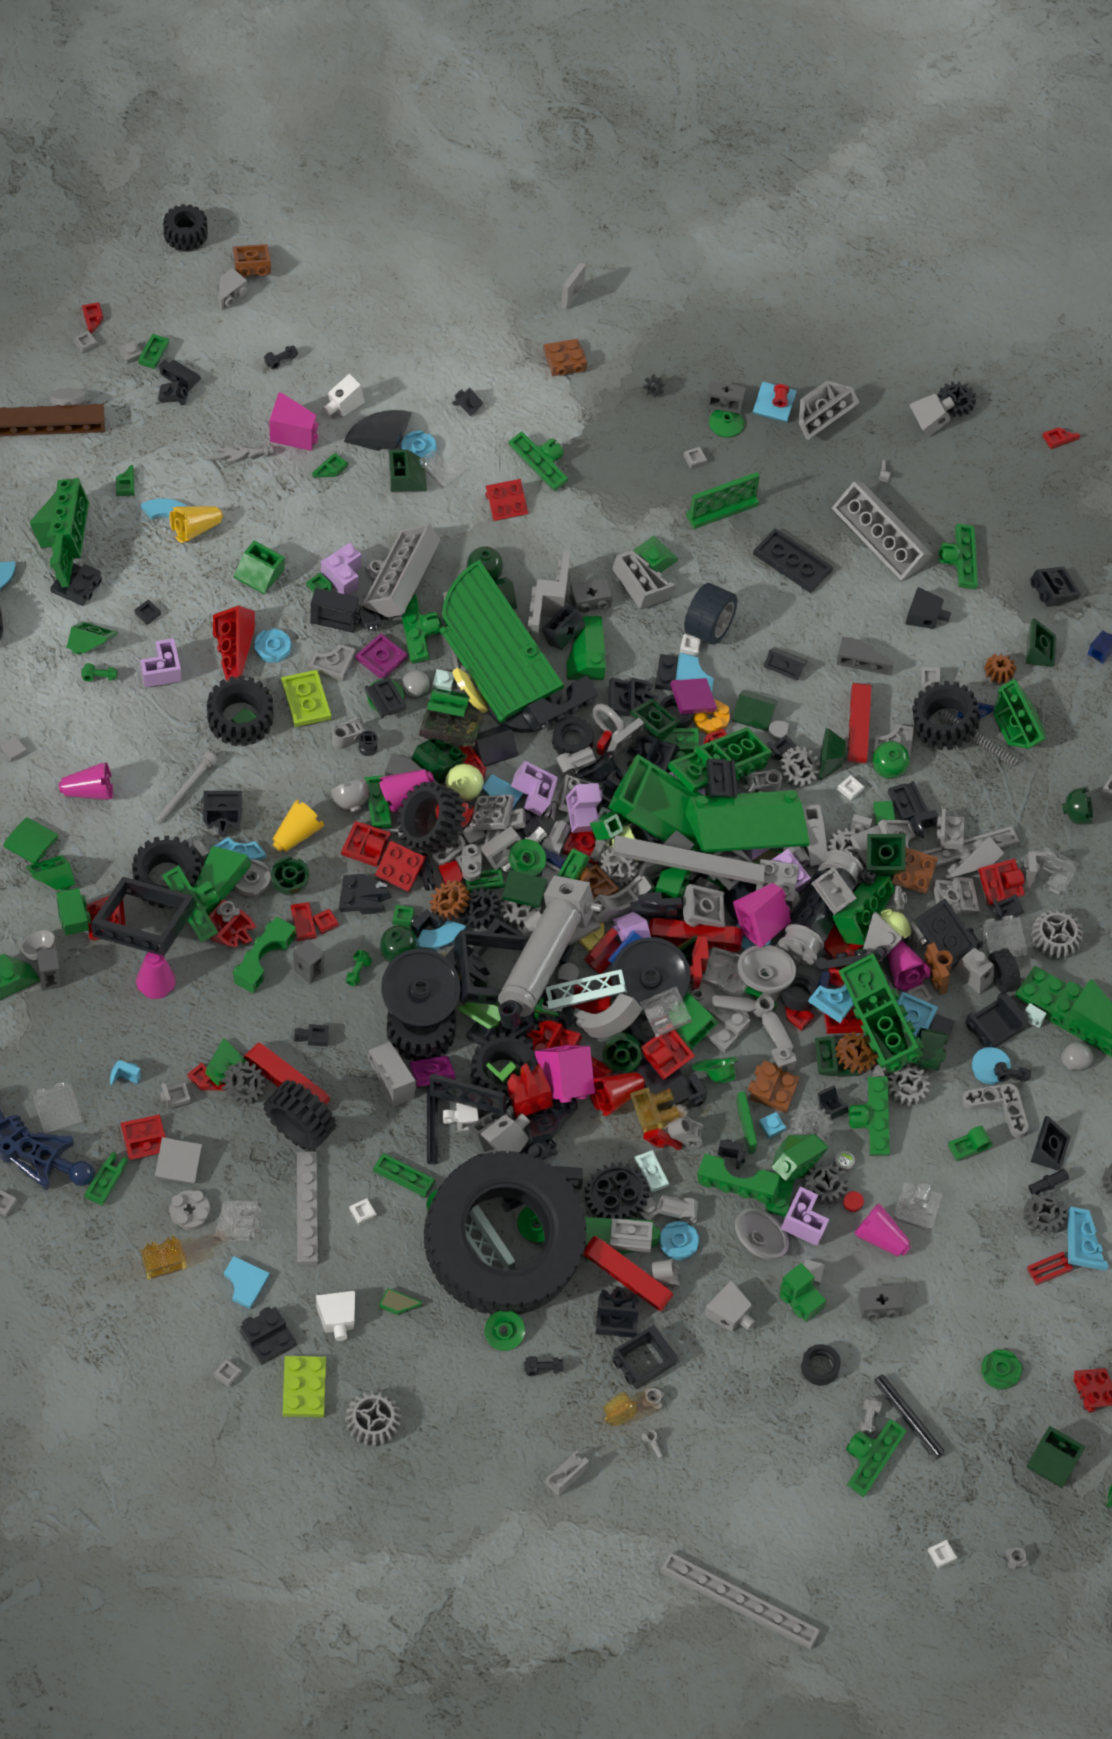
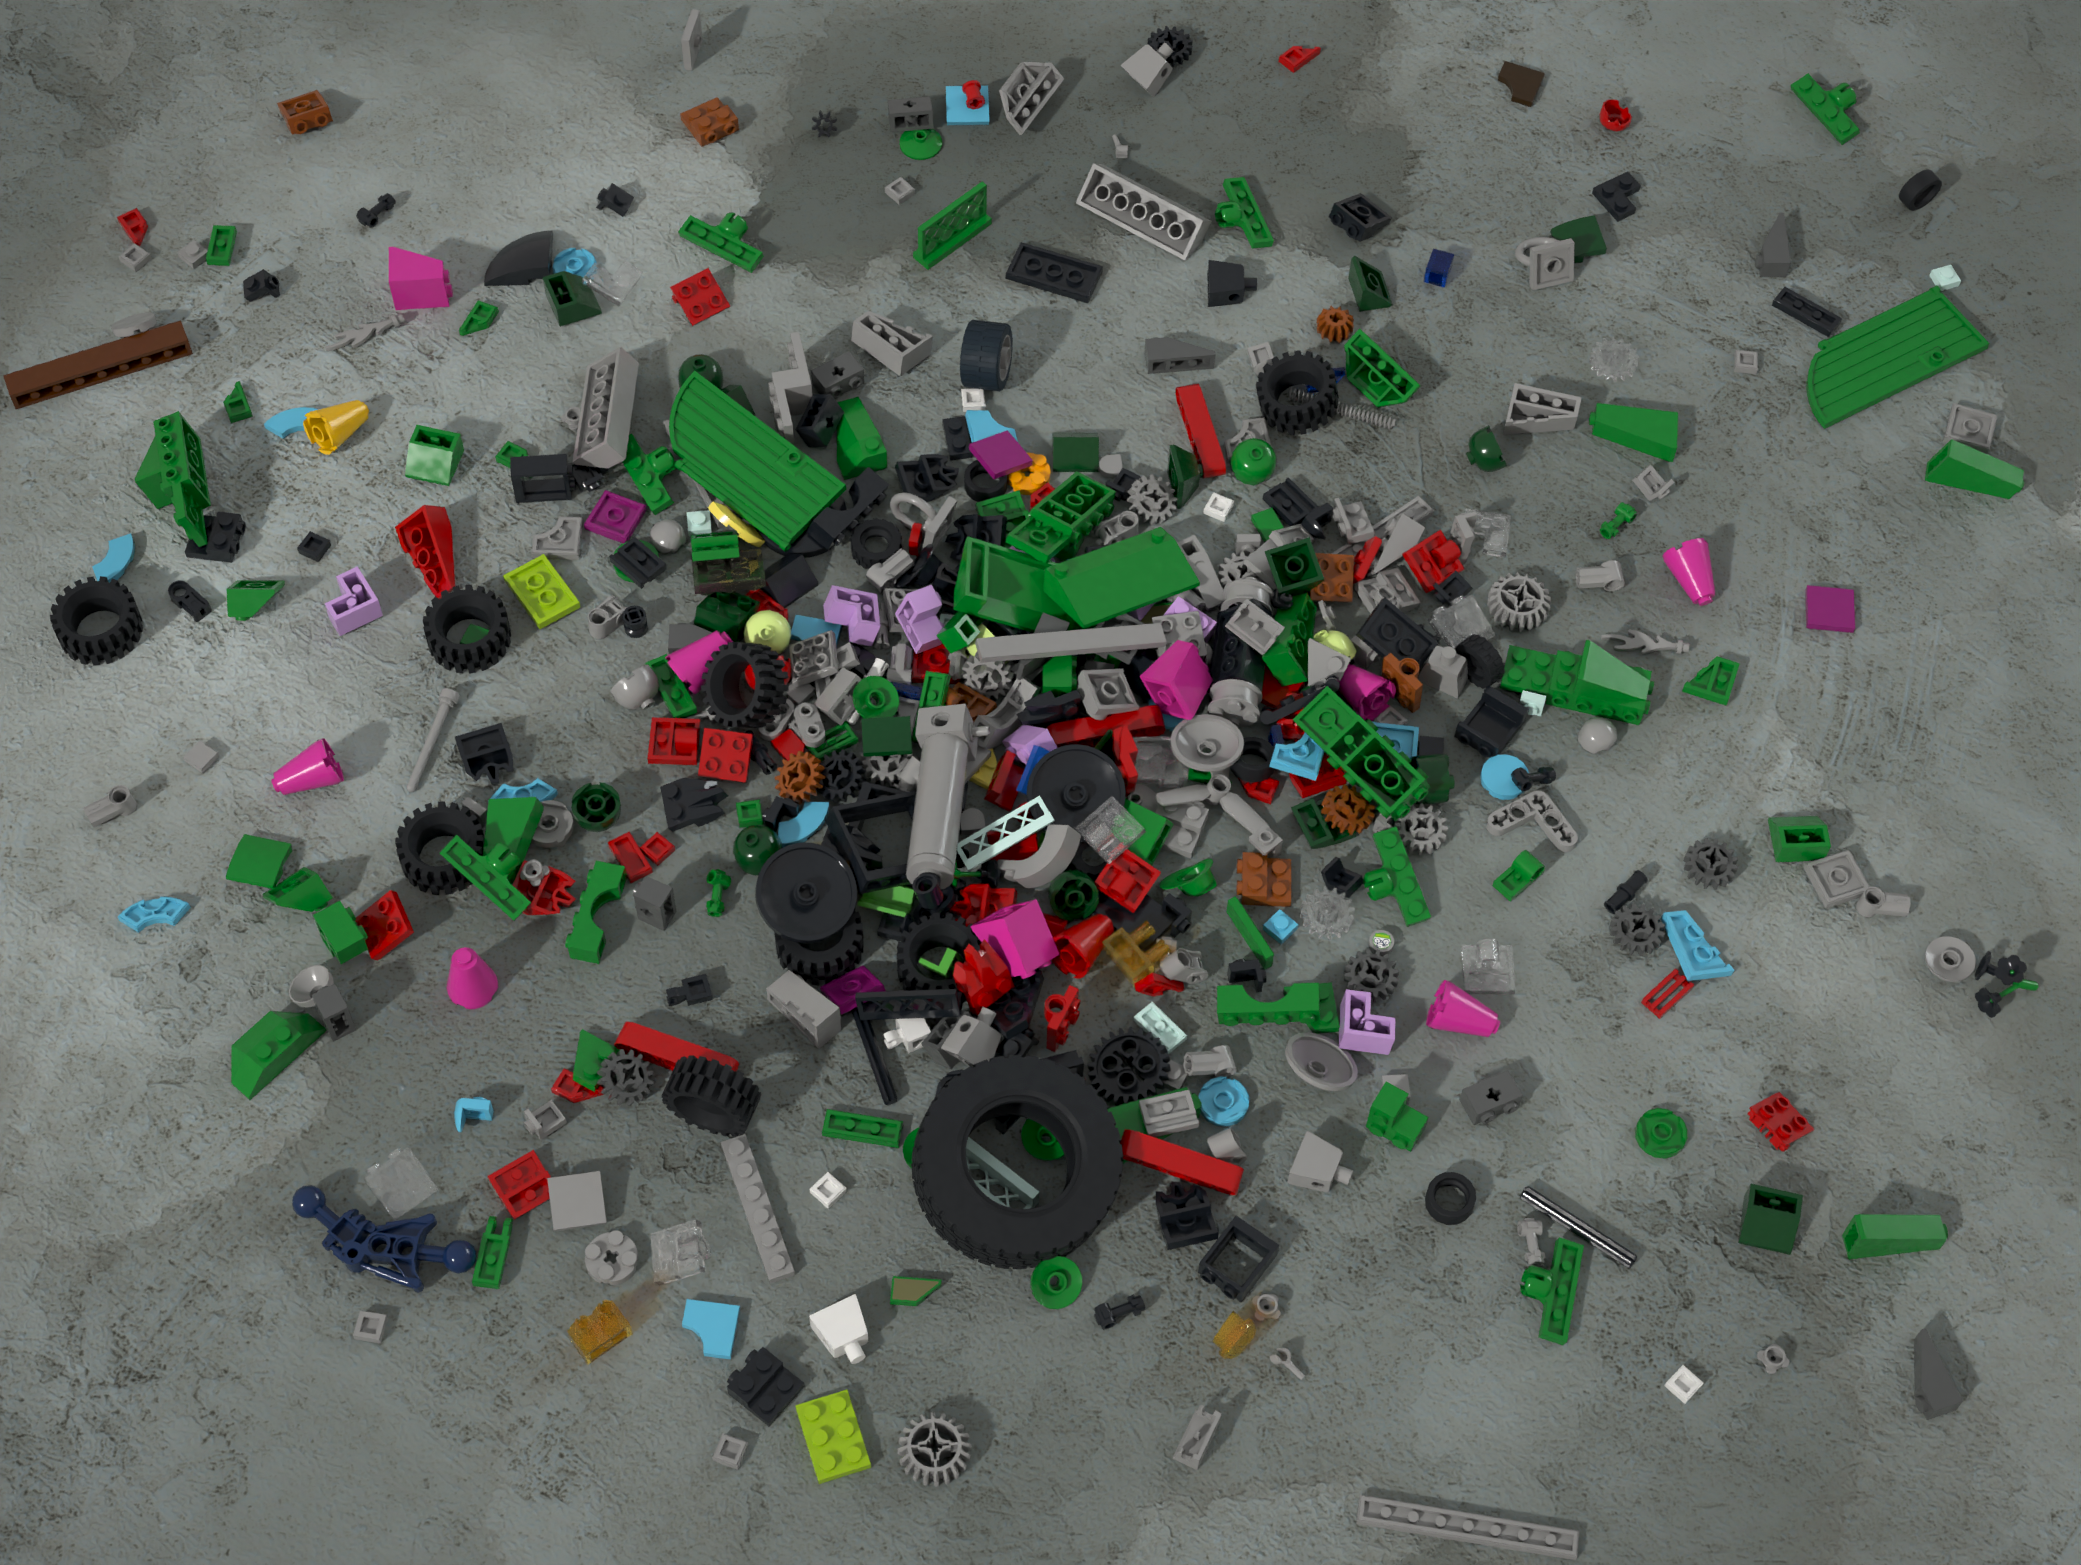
camera: 15 degrees left, 0 degrees up
(43, 627) = (191, 601): none -> black piece
(89, 672) = (266, 637): green bar -> none
(137, 938) = (432, 939): black window -> none
(176, 371) = (254, 261): black panel -> none
(185, 217) = (213, 96): black tyre -> none
(231, 287) = (291, 149): light grey slope -> none
(272, 645) = (480, 542): medium azure tile -> none
(296, 827) = (583, 746): yellow cone -> none
(340, 569) = (532, 428): lavender brick -> none
(345, 397) = (469, 233): white torso -> none
(578, 1143) = (1060, 1021): none -> red plate
(656, 554) = (896, 308): green slope -> none
(656, 719) = (971, 494): dark green slope -> none
(721, 778) = (1074, 536): black plate -> none
(785, 663) = (1090, 389): black panel -> none
(798, 1155) = (1327, 952): green slope -> none
(853, 1201) = (1410, 987): red tile -> none
(947, 863) = (1364, 558): none -> red plate
(1050, 1145) = (1609, 848): black slope -> none

